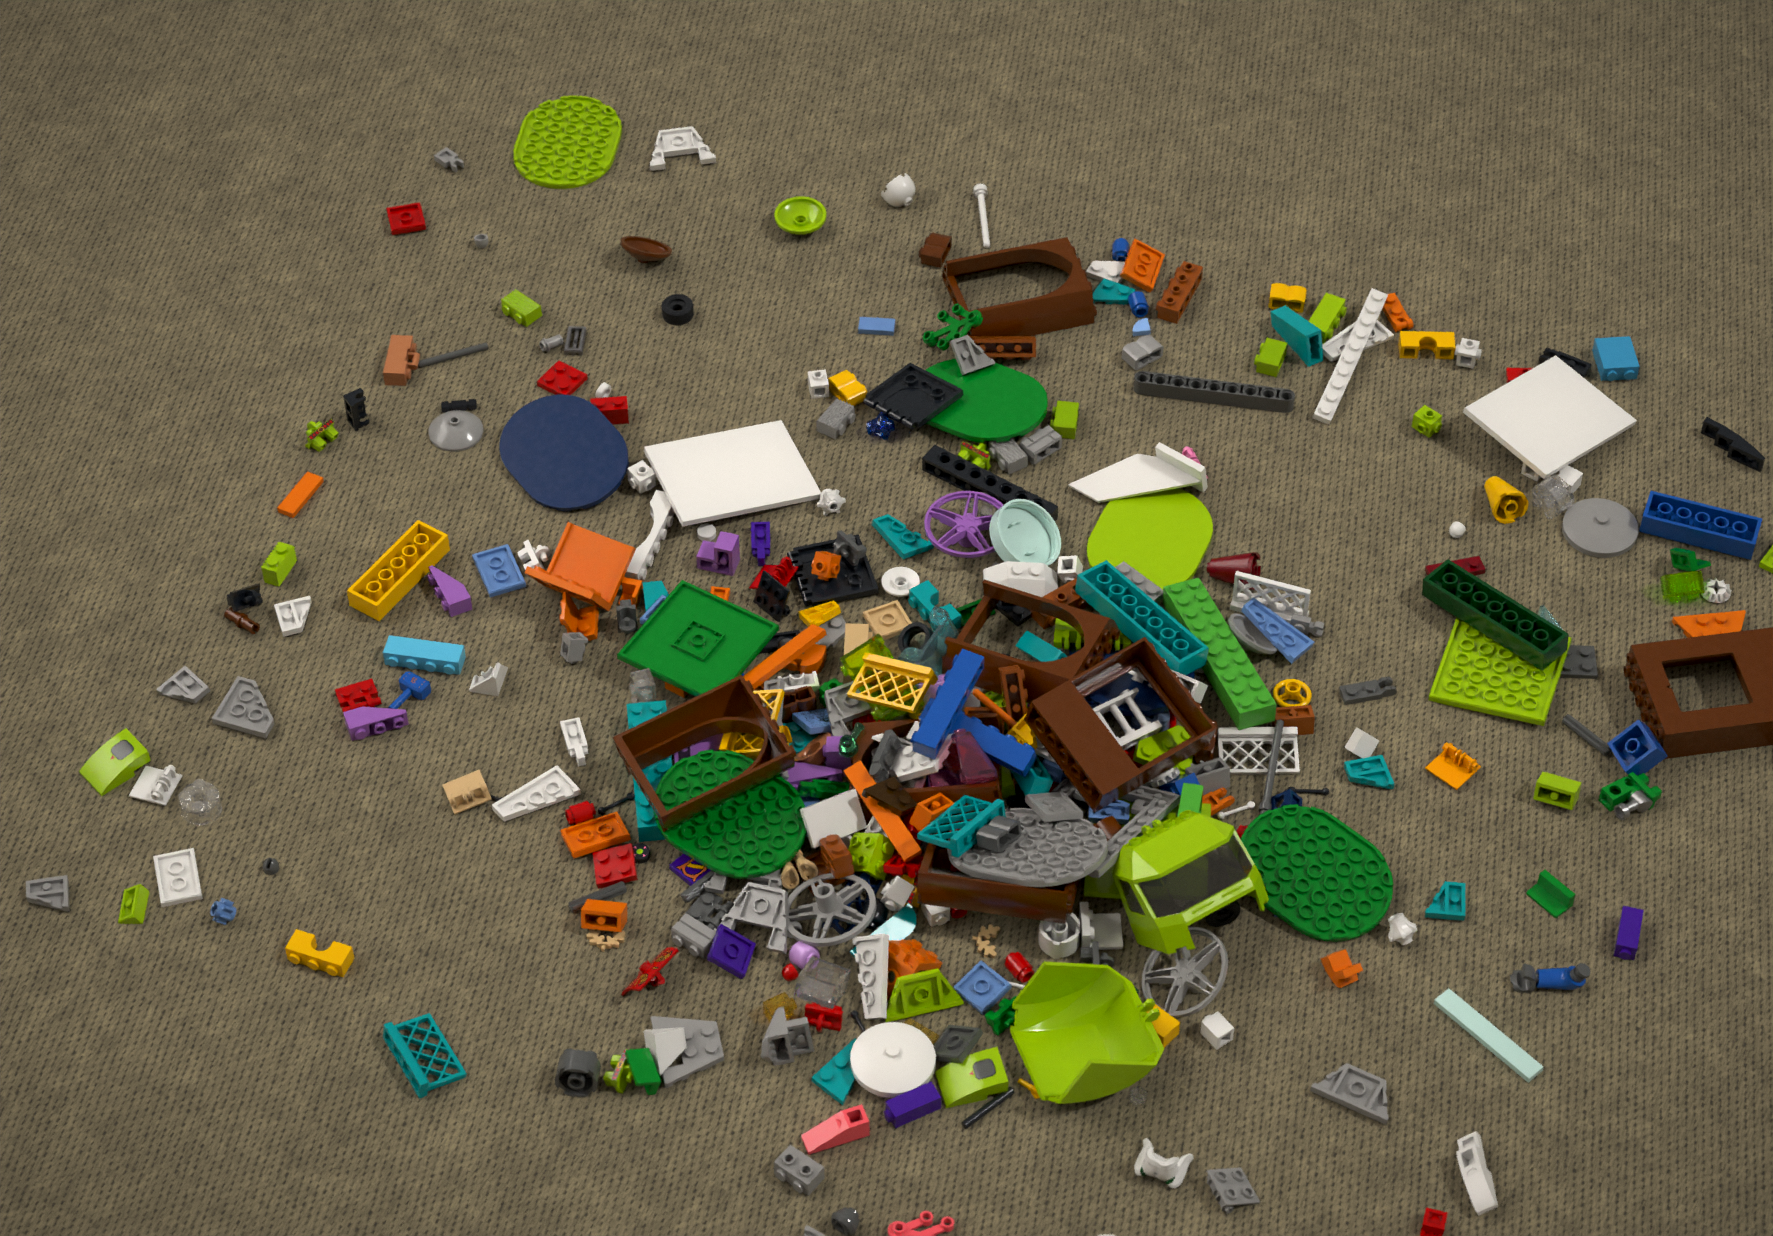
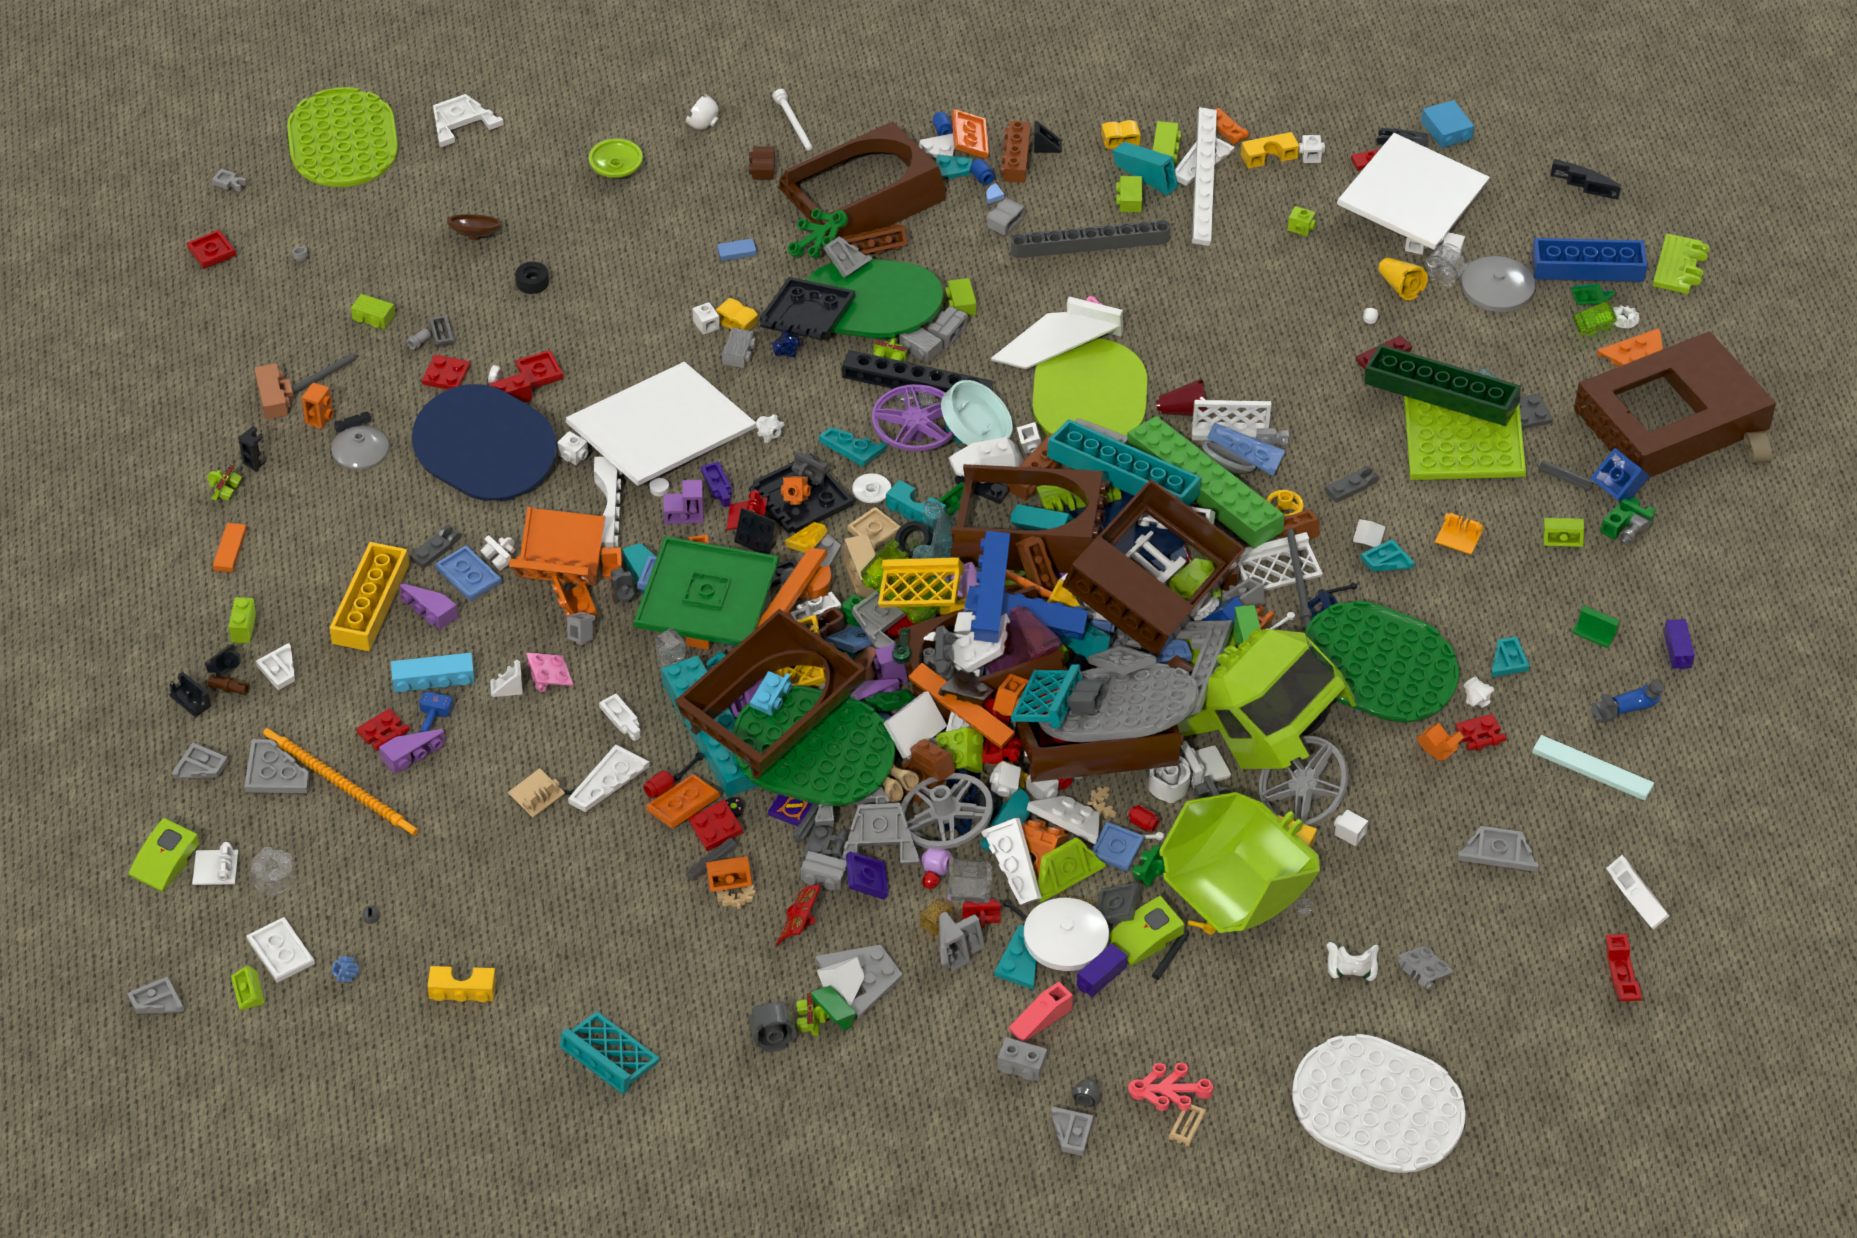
camera: 20 degrees left, 0 degrees up
(203, 622) = (190, 695): none -> black hinge
(299, 735) = (340, 781): none -> light orange hose
(430, 382) = (317, 405): none -> orange brick
(480, 539) = (435, 547): none -> dark grey hinge
(529, 679) = (548, 670): none -> bright pink hinge
(646, 396) = (540, 368): none -> red plate
(707, 753) = (770, 693): none -> medium azure bracket
(947, 944) = (1069, 815): none -> white wing
(1211, 287) = (1045, 140): none -> black slope
(1388, 965) = (1478, 728): none -> red plate

